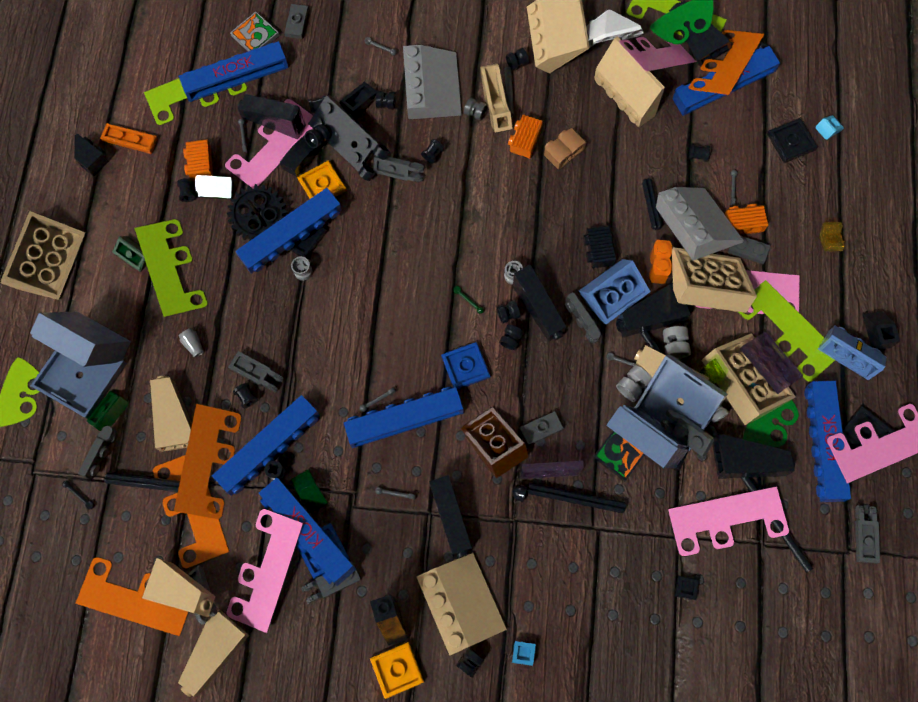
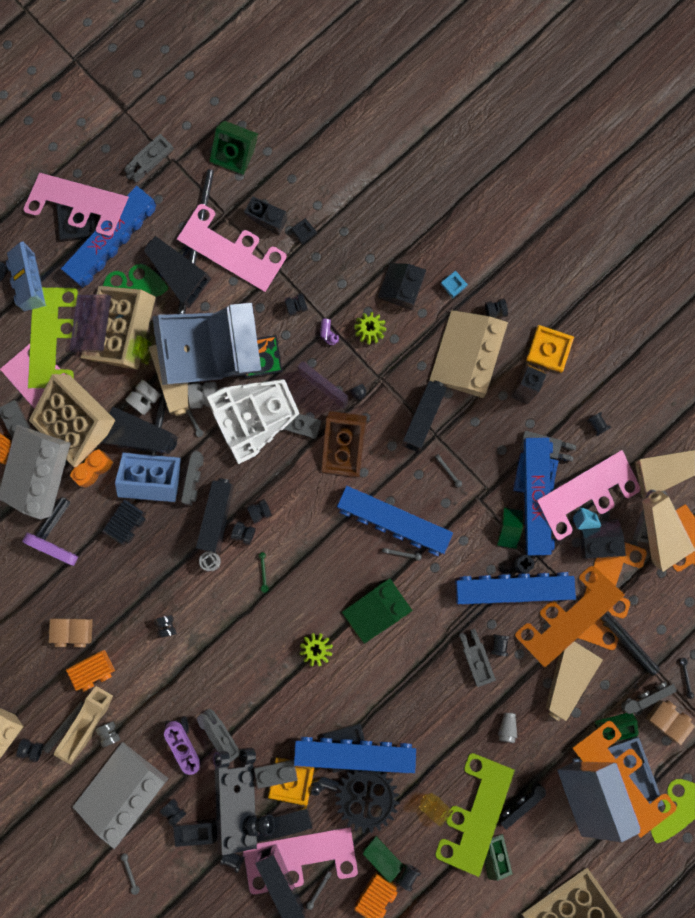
camera: 140 degrees left, 10 degrees up
(59, 367) = (595, 749): none -> orange piece
(66, 449) = (670, 722): none -> medium nougat brick
(139, 298) = (523, 805): none -> black plate
(202, 246) = (435, 808): none -> clear yellow bracket
(227, 543) = (603, 541): none -> black slope
(252, 548) = (586, 519): none -> medium azure slope
(298, 199) = (321, 784): none -> black arm
(299, 265) = (371, 718): light grey wheel -> none
(303, 638) = (598, 424): none -> black bush
(336, 176) = (275, 773): none -> dark grey plate
(359, 343) = (377, 611): none -> dark green slope
(375, 283) = (322, 646): none -> lime gear
(421, 144) = (181, 757): none -> medium lavender beam
(465, 366) = (313, 521): blue tile -> none
(503, 204) = (163, 622): none -> black wheel
(562, 546) = (369, 335): none -> lime gear
(565, 613) = (402, 284): none -> black slope
(576, 498) = (322, 354): black axle -> none
(582, 398) = (252, 415): none -> white wedge
(587, 517) = (326, 334): none -> medium lavender arm
(632, 185) = (50, 549): none -> medium lavender beam
(634, 518) = (300, 304): none -> black wheel
(688, 432) = (203, 323): dark grey hinge -> none
(728, 570) = (266, 215): none -> black slope
(812, 607) = (233, 147): none -> dark green slope

